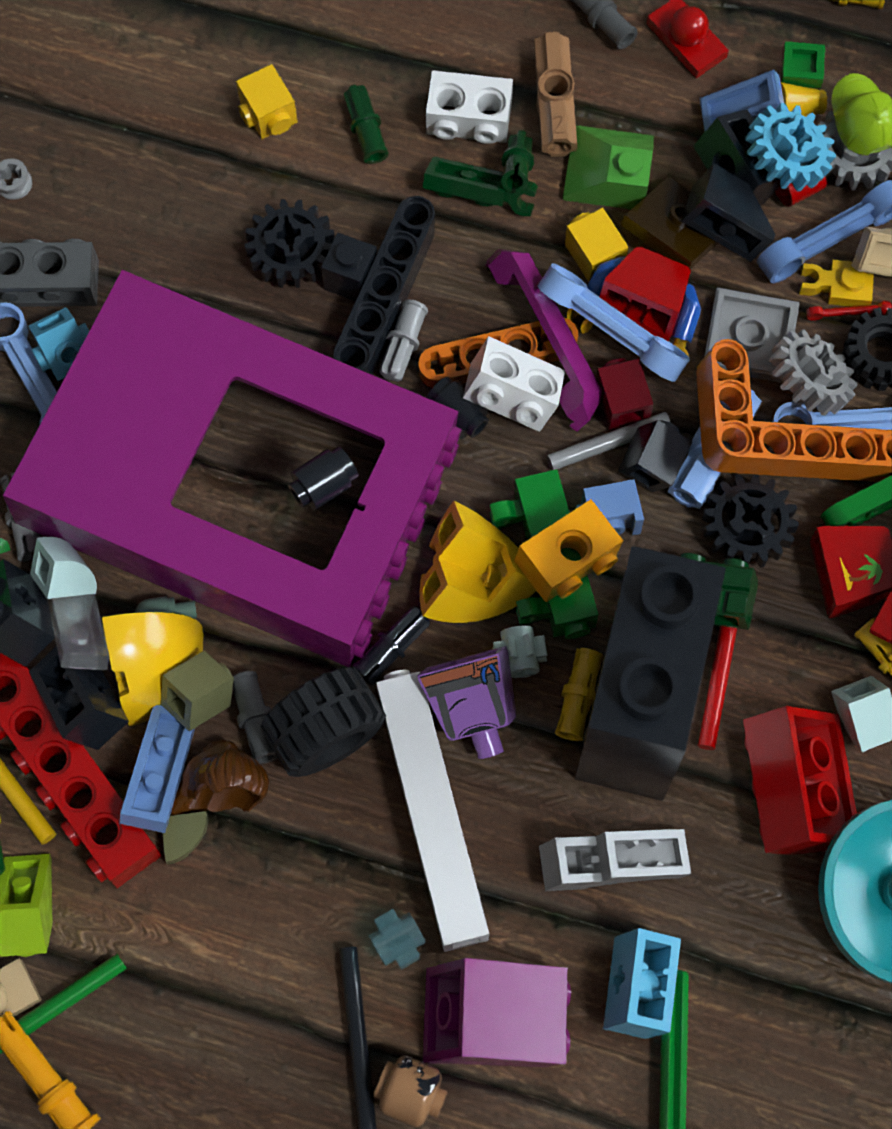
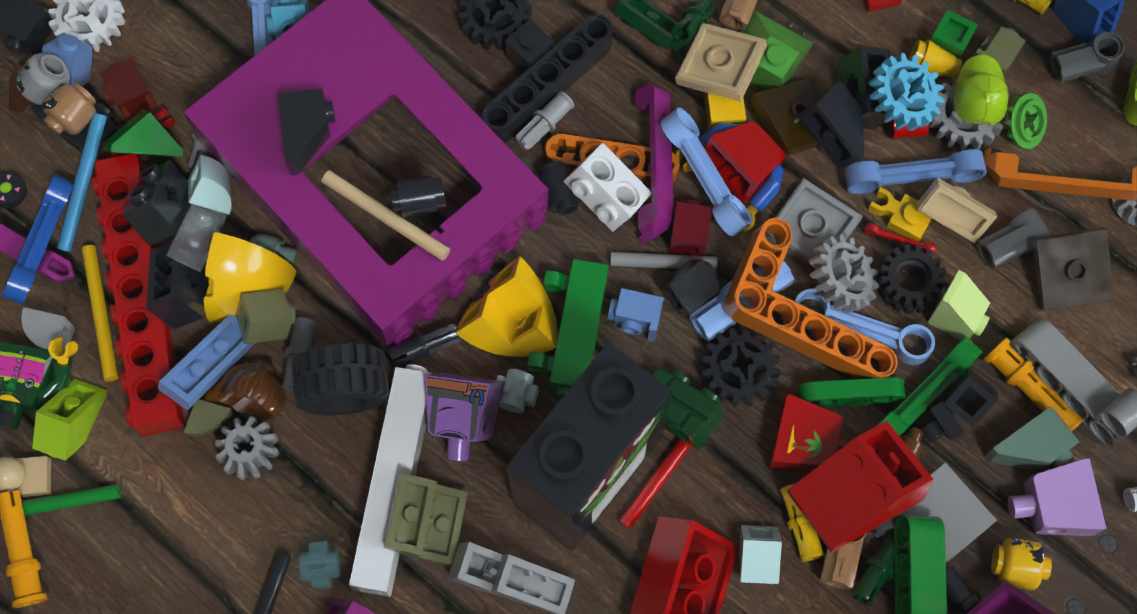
camera: 25 degrees right, 0 degrees up
(155, 451) = (304, 125): none -> black slope
(240, 833) = (242, 461): none -> light grey gear
(293, 515) = (385, 215): none -> tan bar
(492, 836) = (425, 520): none -> olive slope
(573, 195) = (721, 62): none -> tan plate
(580, 530) = (599, 316): light orange brick -> none
(748, 95) = (896, 40): medium blue tile -> none
(862, 57) = (1002, 47): none -> olive brick

